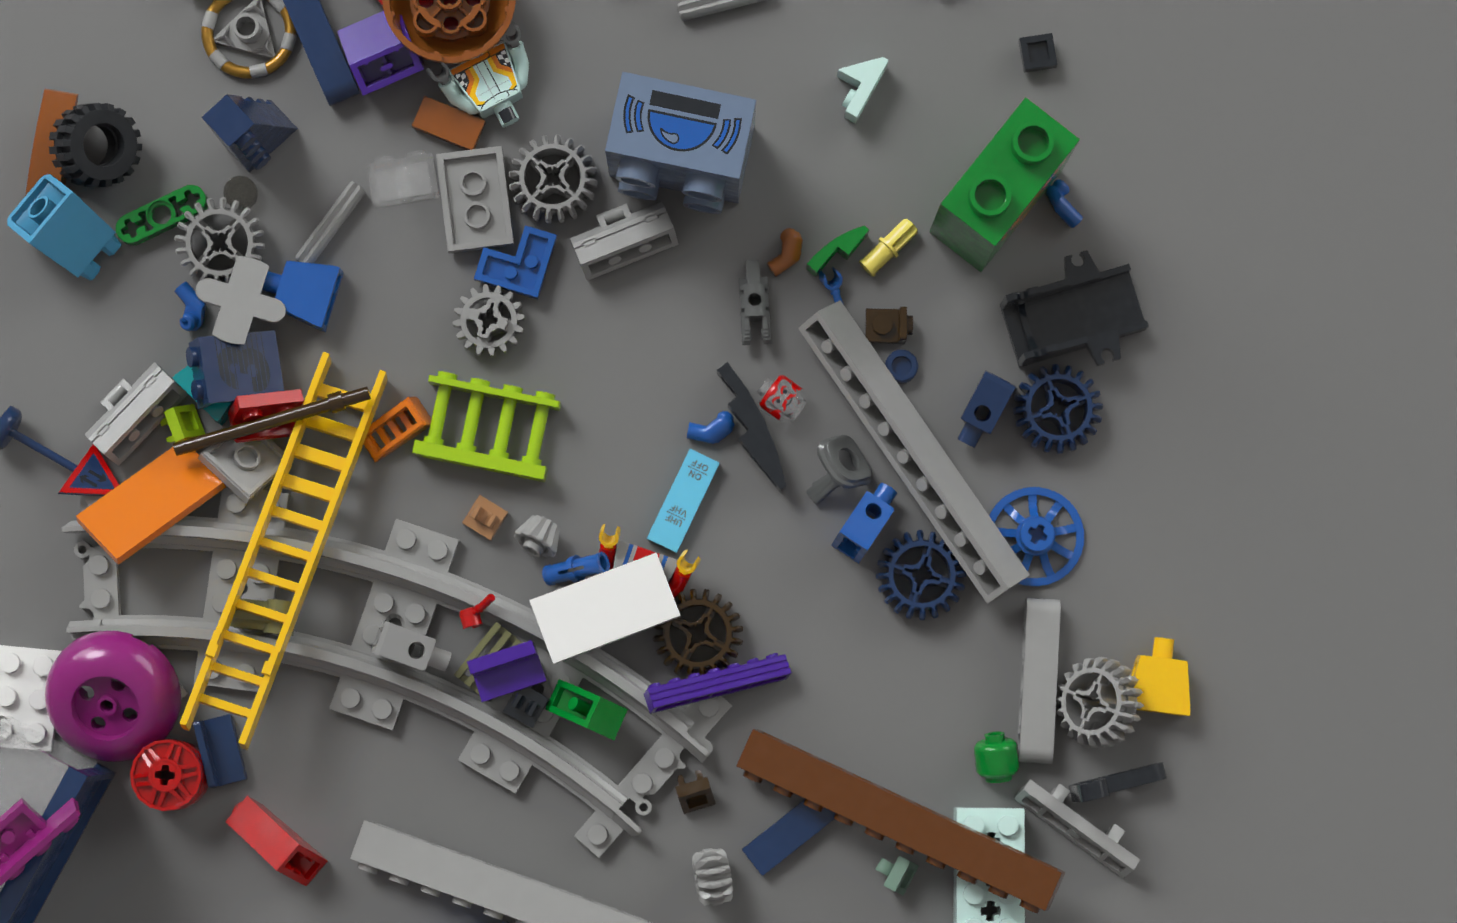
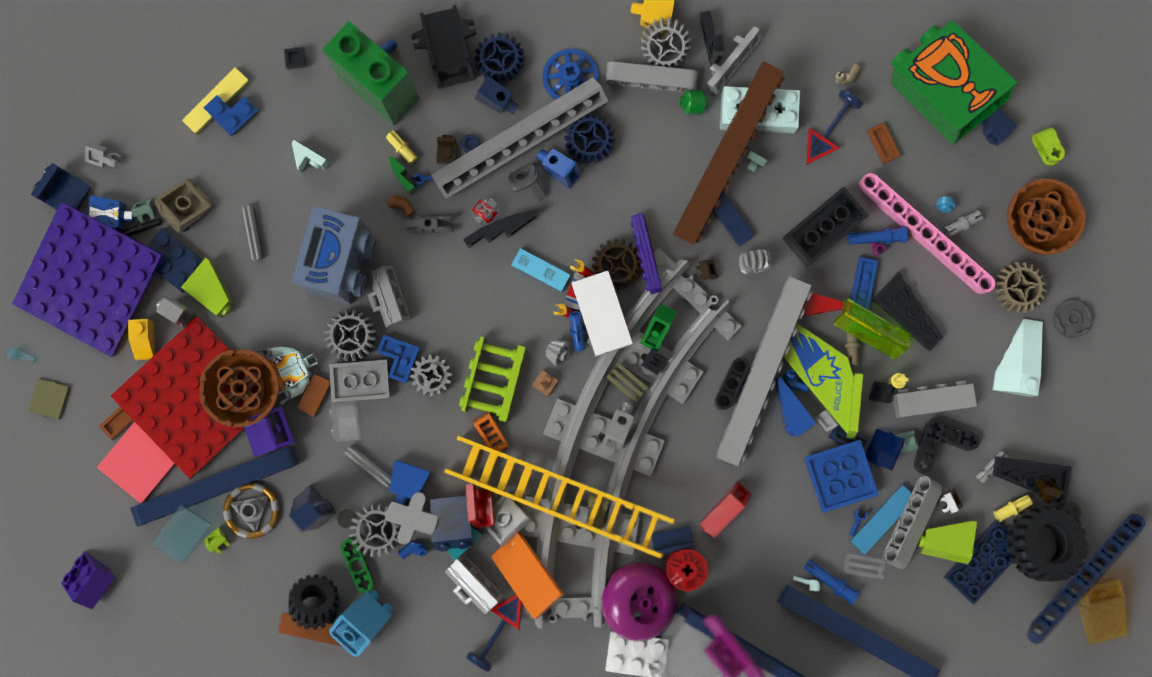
camera: 85 degrees left, 0 degrees up
(182, 422) = (481, 555): lime tile -> none
(335, 402) = (474, 463): dark brown bar -> none
(471, 616) = (603, 391): red hand -> none
(478, 844) = (733, 374): none -> black beam
(507, 671) = (635, 370): dark purple panel -> none
(713, 432) = (502, 250): blue arm -> none

